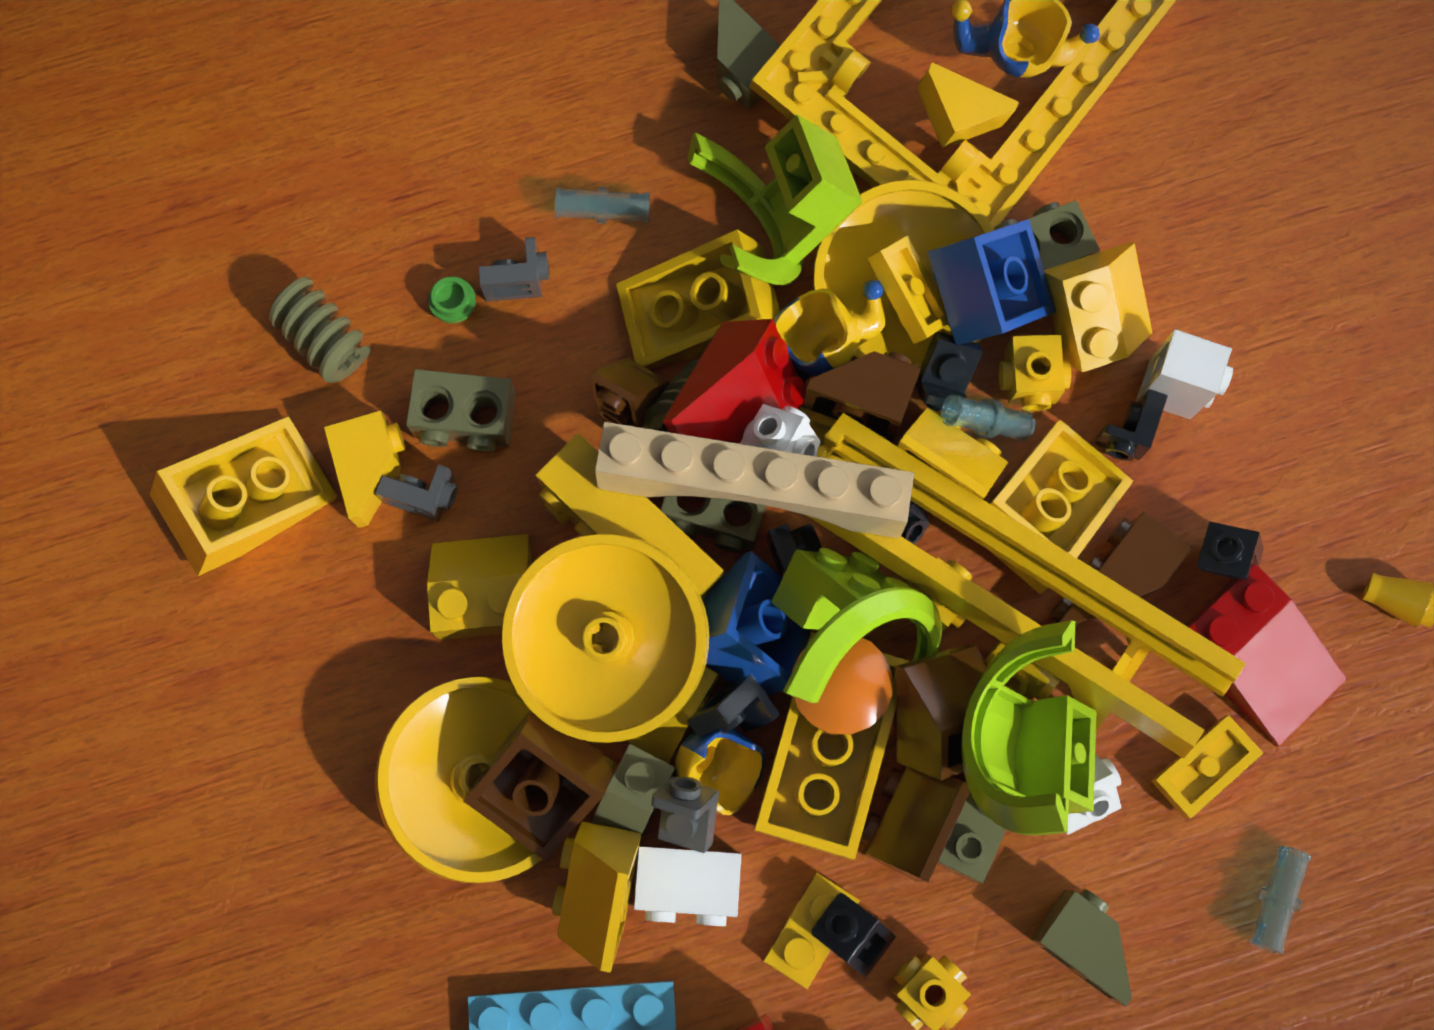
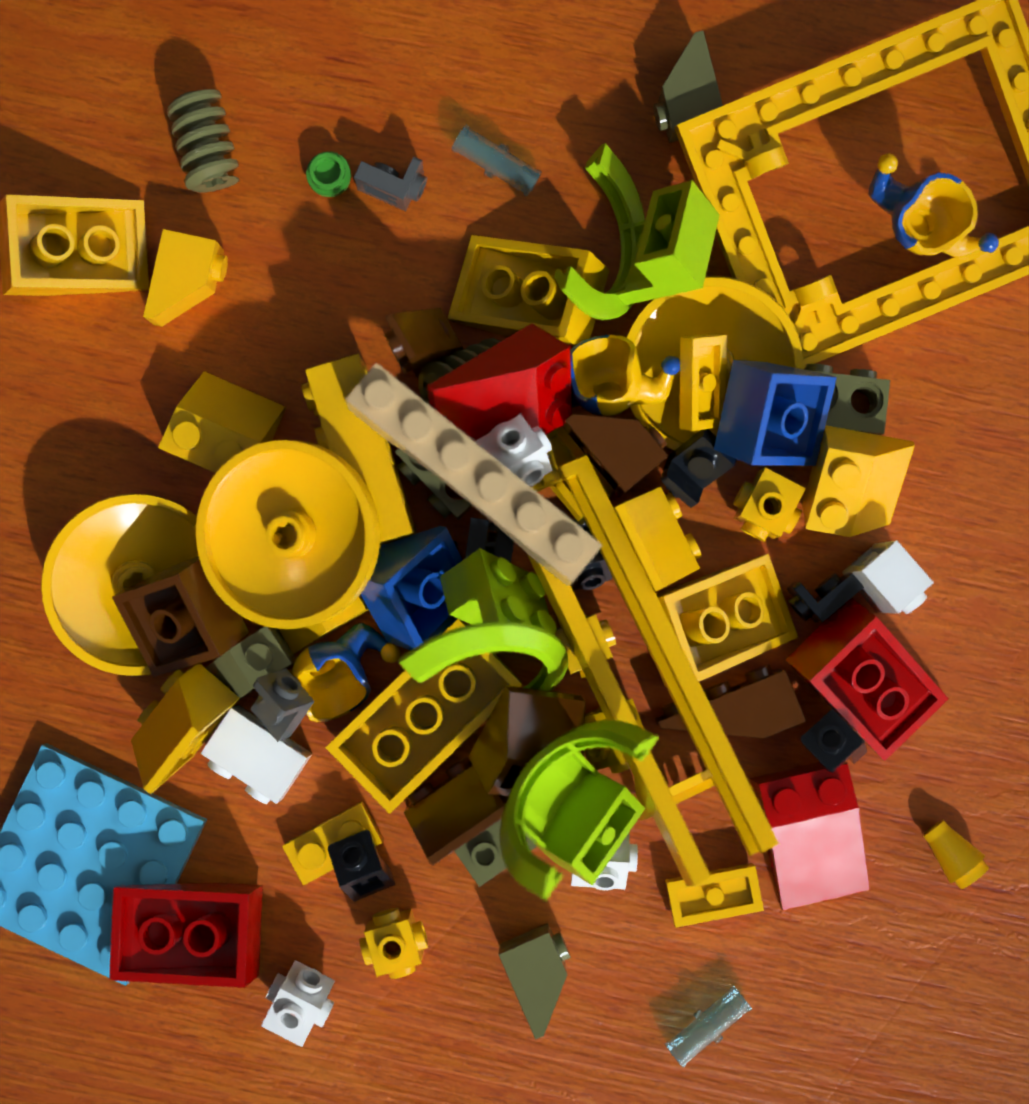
camera: 25 degrees right, 10 degrees up
(410, 493) = (206, 322): dark grey bracket -> none
(465, 398) = (291, 266): olive brick -> none
(733, 705) = (362, 641): black bracket -> none
(854, 694) = (462, 687): orange dish -> none
(961, 106) = (839, 247): yellow slope -> none
(988, 418) = (706, 522): clear light blue pin -> none
(1220, 475) = (867, 678): none -> red slope

